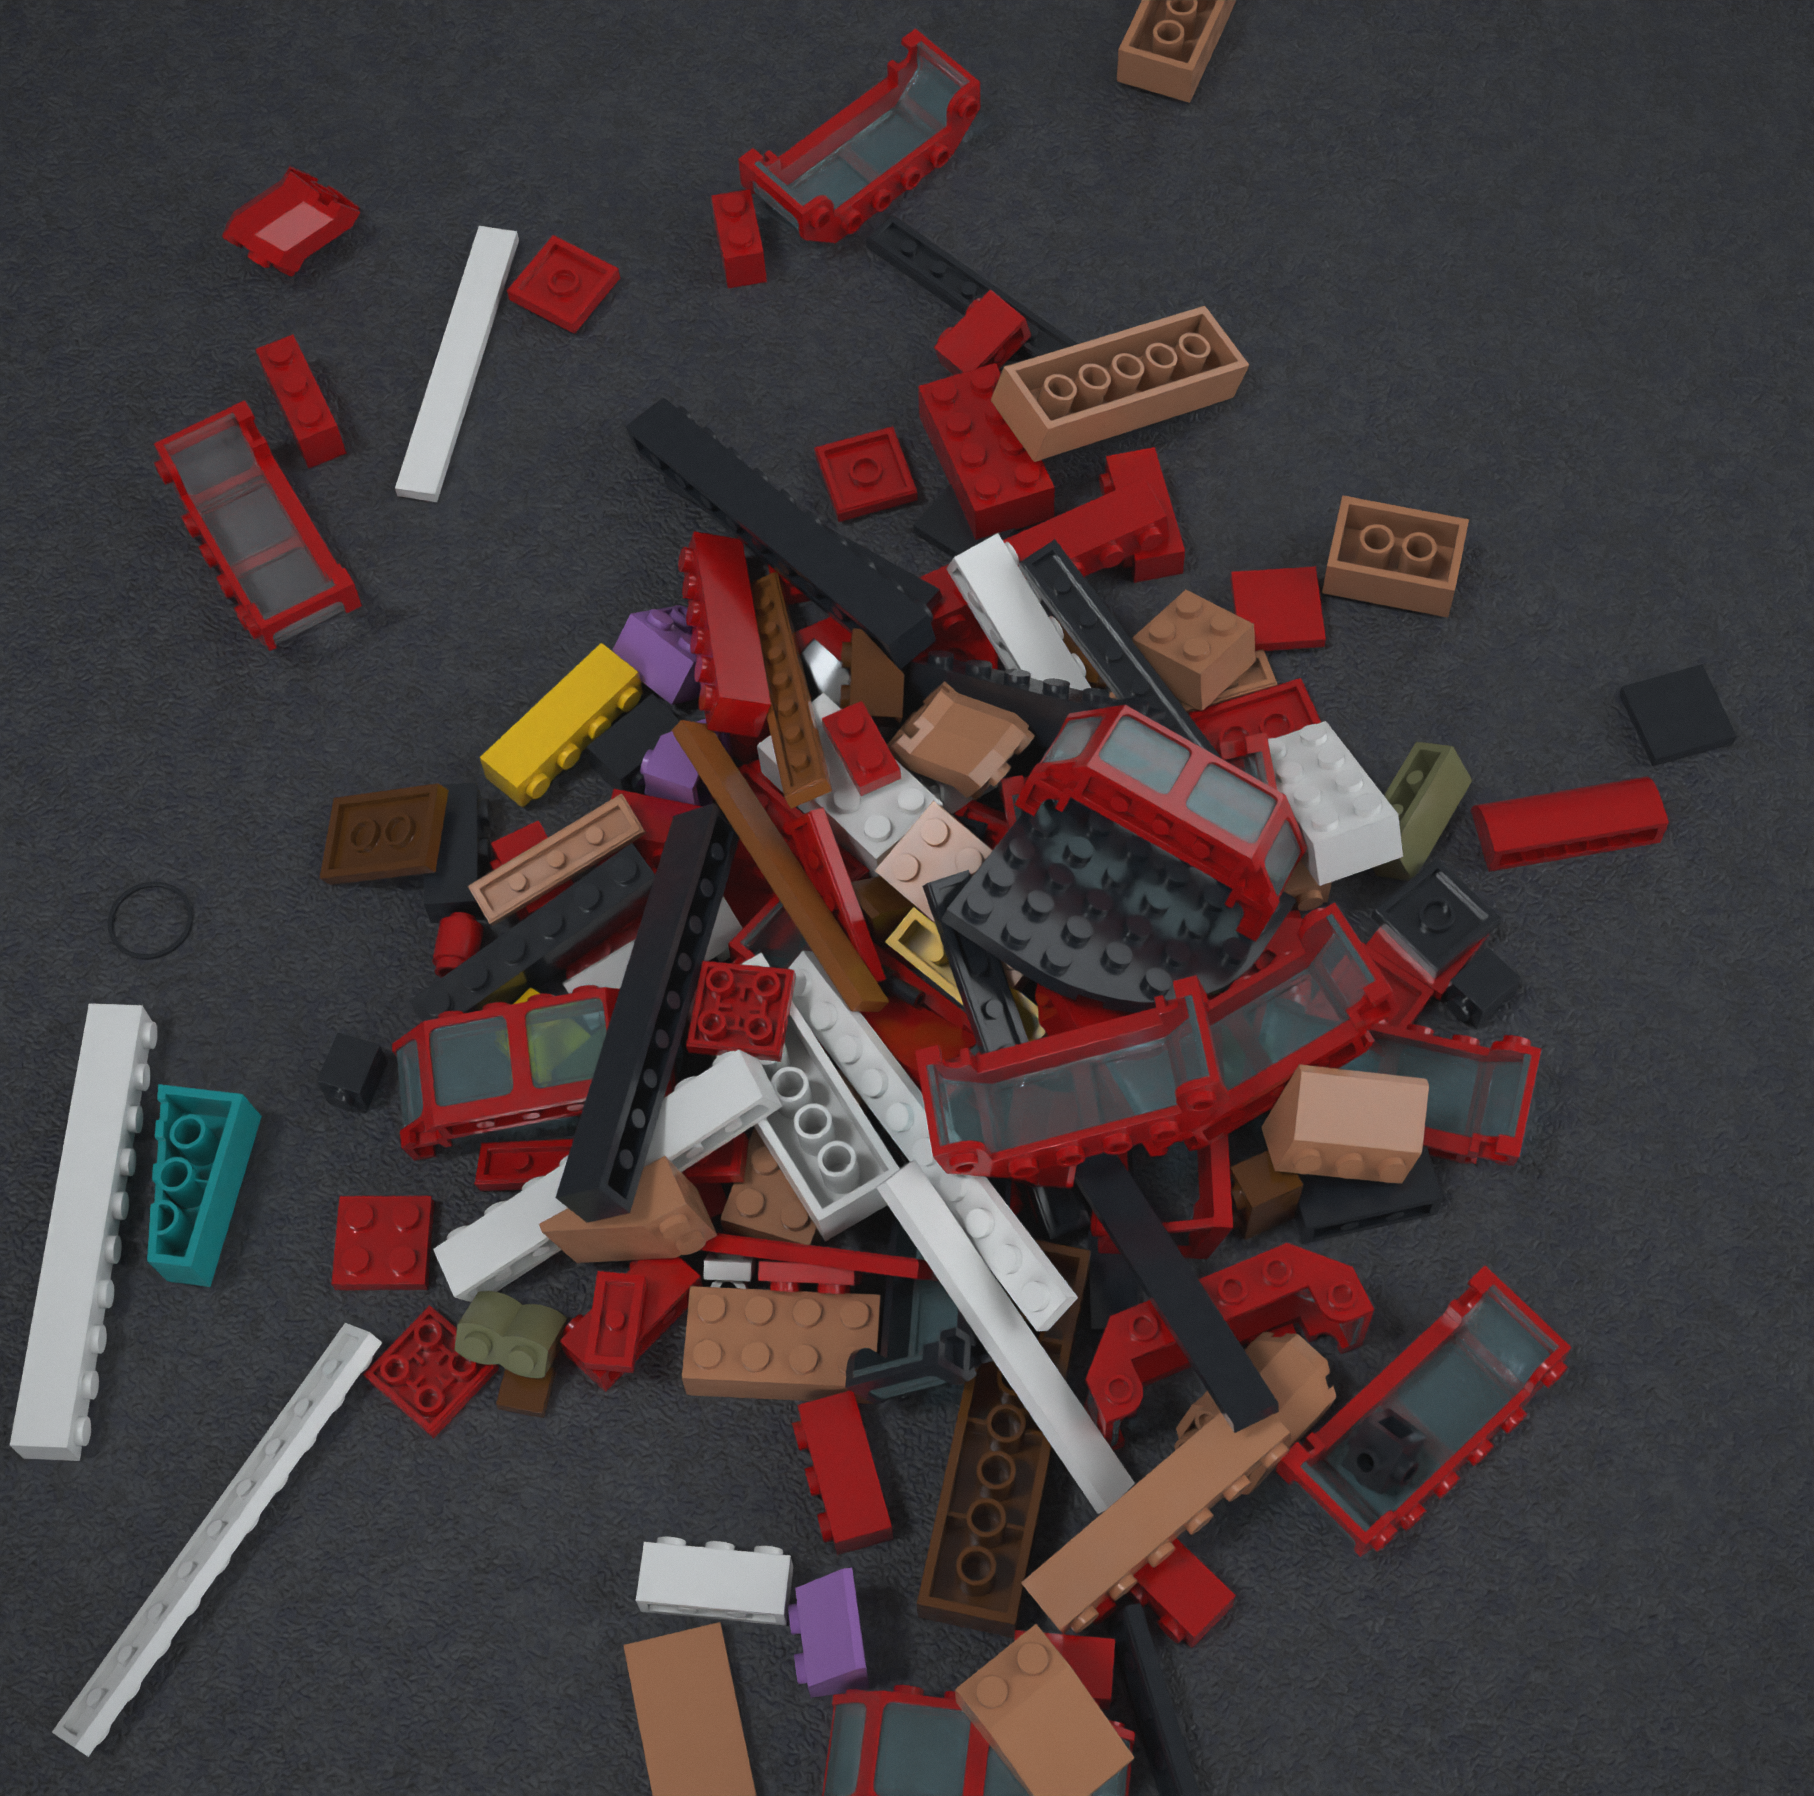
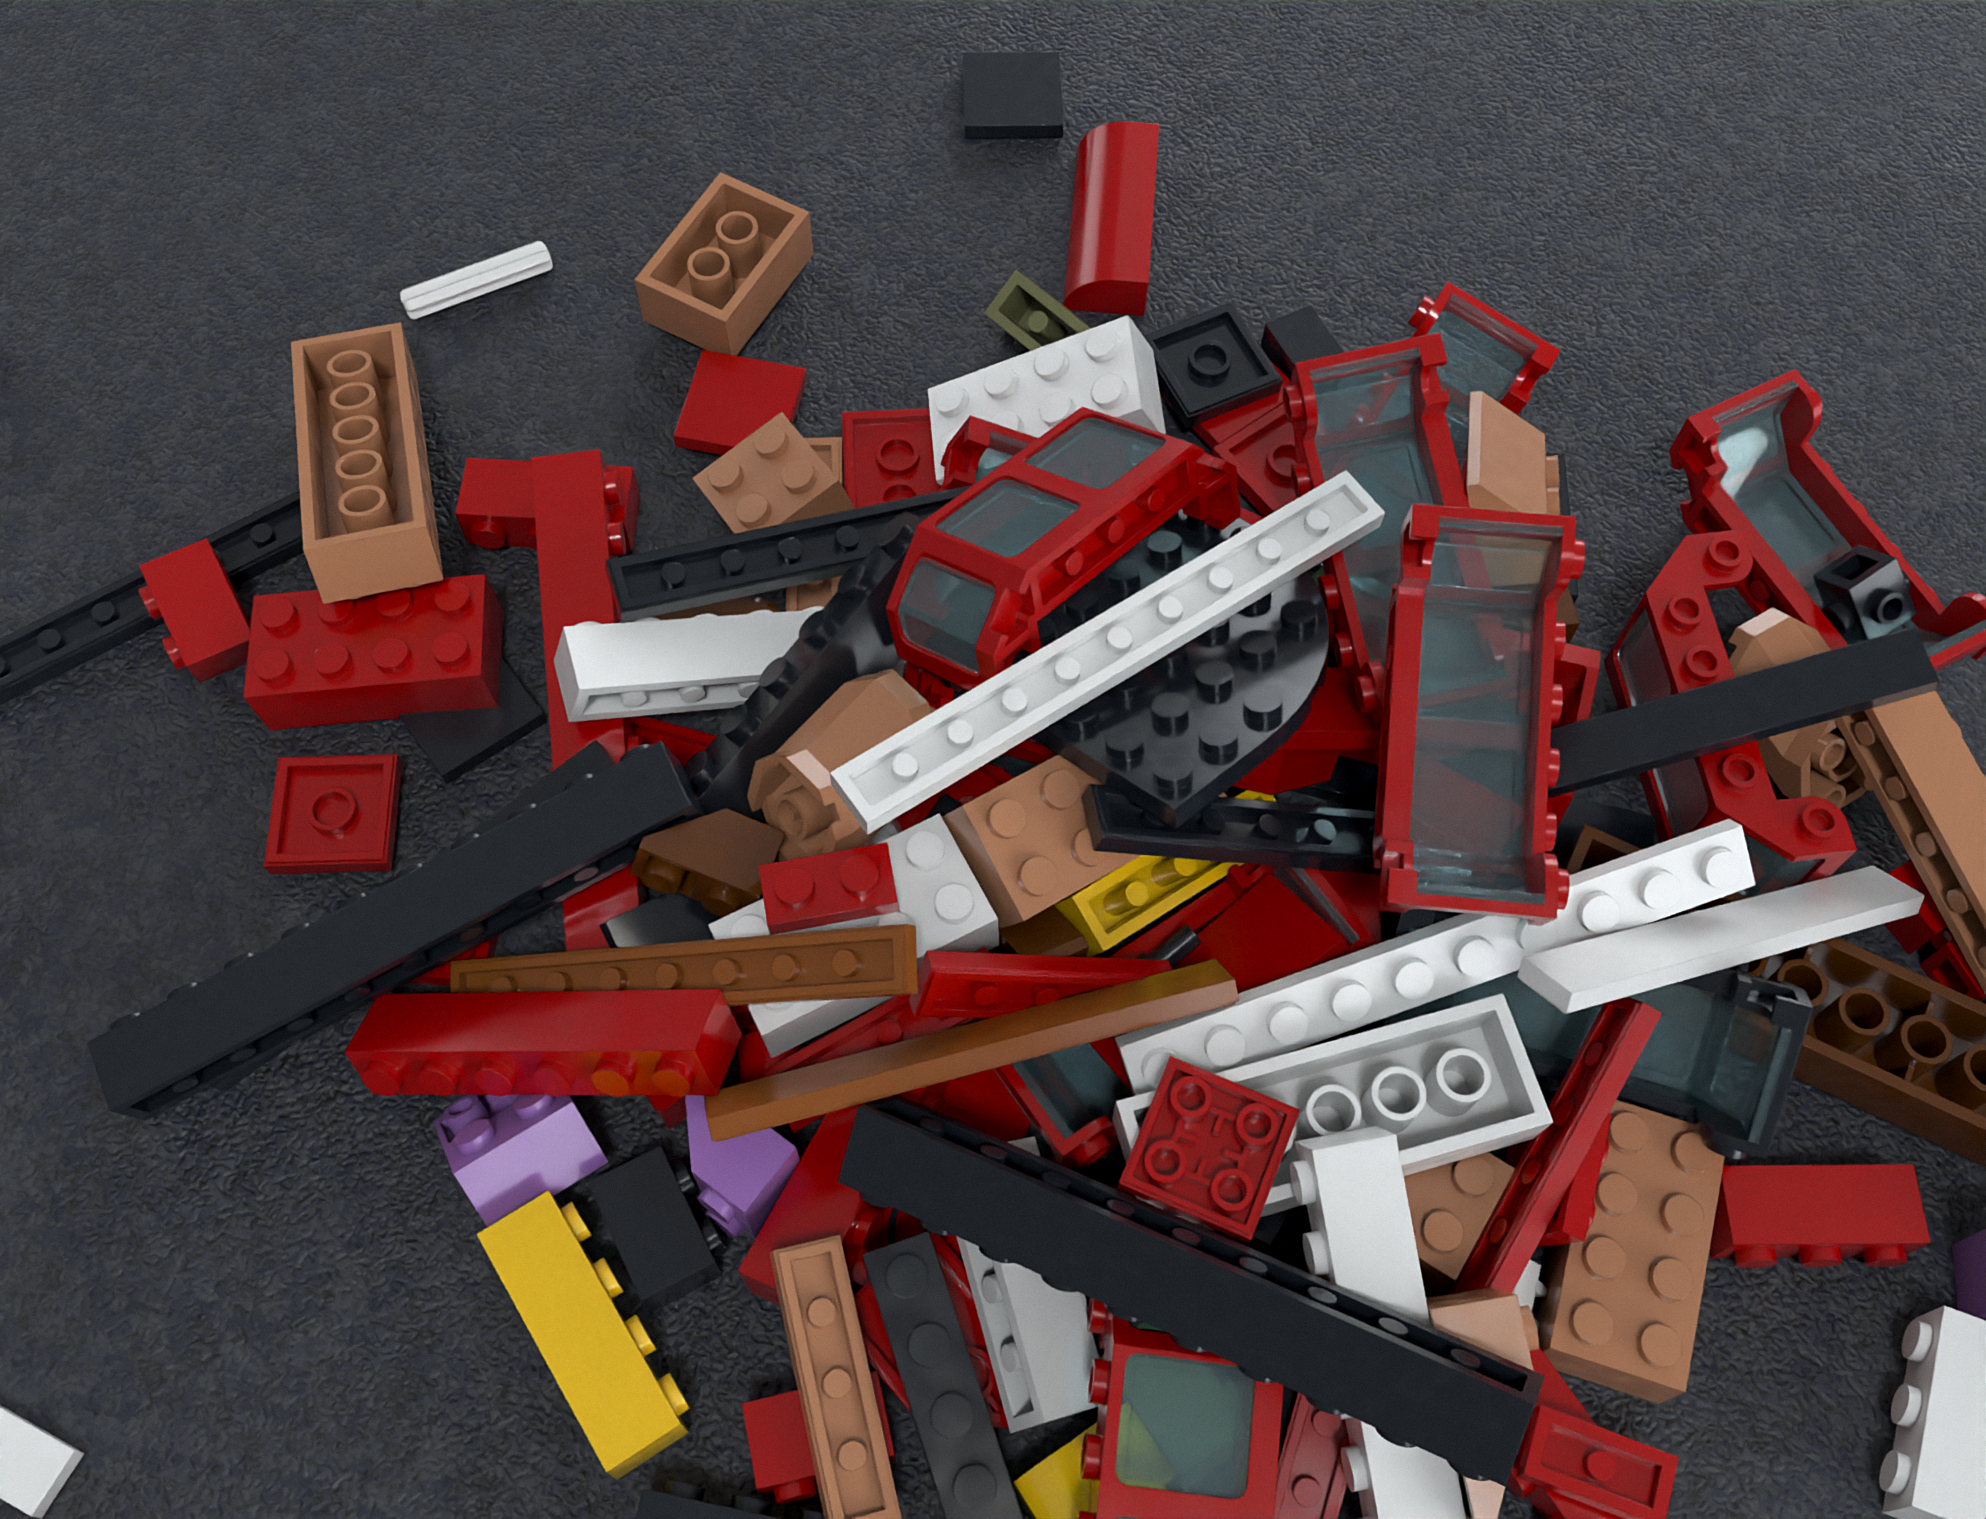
camera: 80 degrees left, 0 degrees up
(1080, 858) = (1103, 652): none -> white plate
(1329, 404) = (476, 280): none -> white axle

